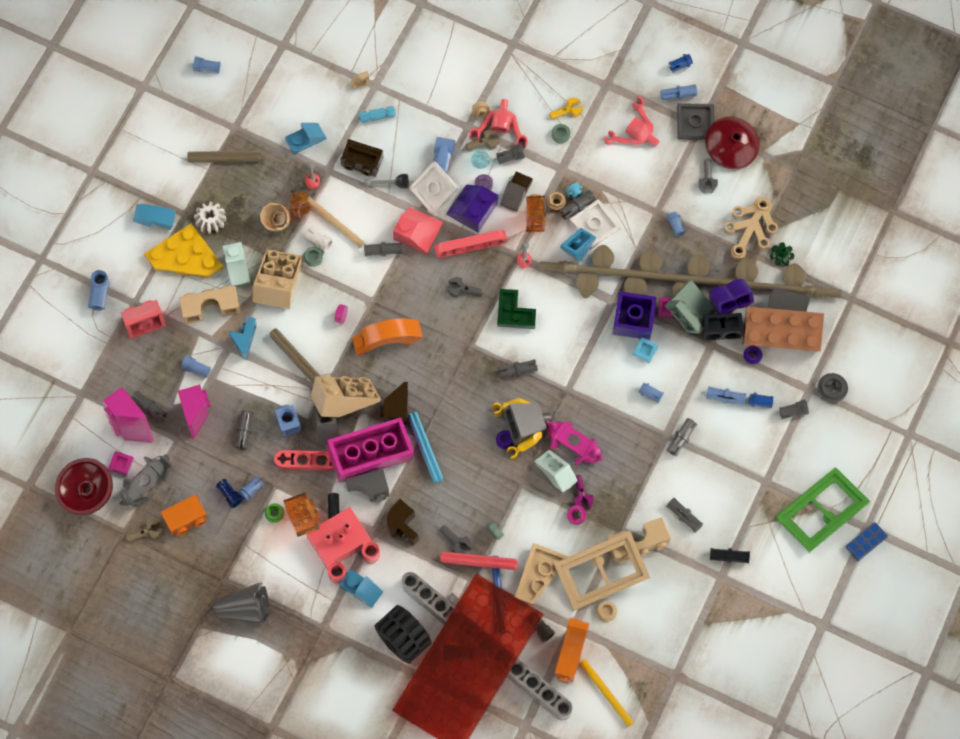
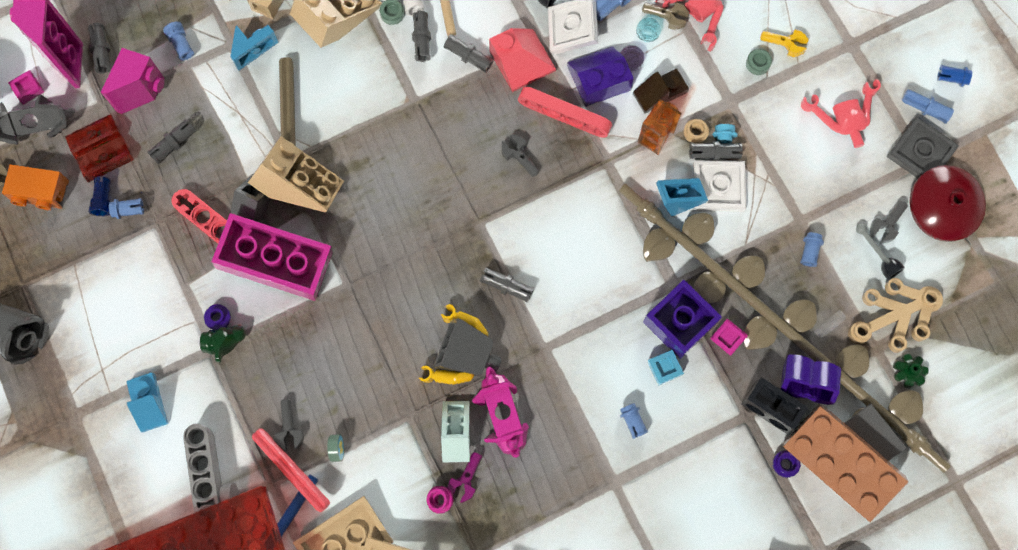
camera: 40 degrees right, 5 degrees up
(201, 466) = (99, 148): none -> clear red slope
(274, 507) = (125, 245): bright green plate -> none
(291, 427) = (223, 173): medium blue brick -> none
(302, 514) = (145, 274): clear orange brick -> none
(340, 539) = (166, 331): coral piece -> none
(341, 314) = (368, 90): dark pink tile -> none
(345, 258) = (421, 36): none -> dark grey pin
(365, 515) = (222, 322): none -> dark purple plate
(371, 484) = (250, 299): dark grey arch -> none
(377, 520) = (221, 341): none -> dark green animal
(387, 332) = (398, 145): orange arch -> none
(396, 404) = (345, 230): dark brown slope -> none
(397, 521) = (241, 356): dark brown brick -> none
(403, 634) = (134, 492): black wheel -> none
(425, 447) = (339, 298): medium azure axle -> none
(504, 439) = (428, 353): dark purple plate -> none
(509, 155) = (691, 49): dark grey pin -> none
(512, 316) = (547, 221): dark green plate -> none
(523, 257) = (610, 166): coral hinge -> none
(681, 437) = (629, 499): flat silver pin -> none
(689, 307) = (753, 355): sand green bracket -> none
(726, 395) = (718, 489): medium blue pin -> none
(727, 202) = (890, 266): none -> hinge
(760, 400) = (754, 525): blue pin -> none

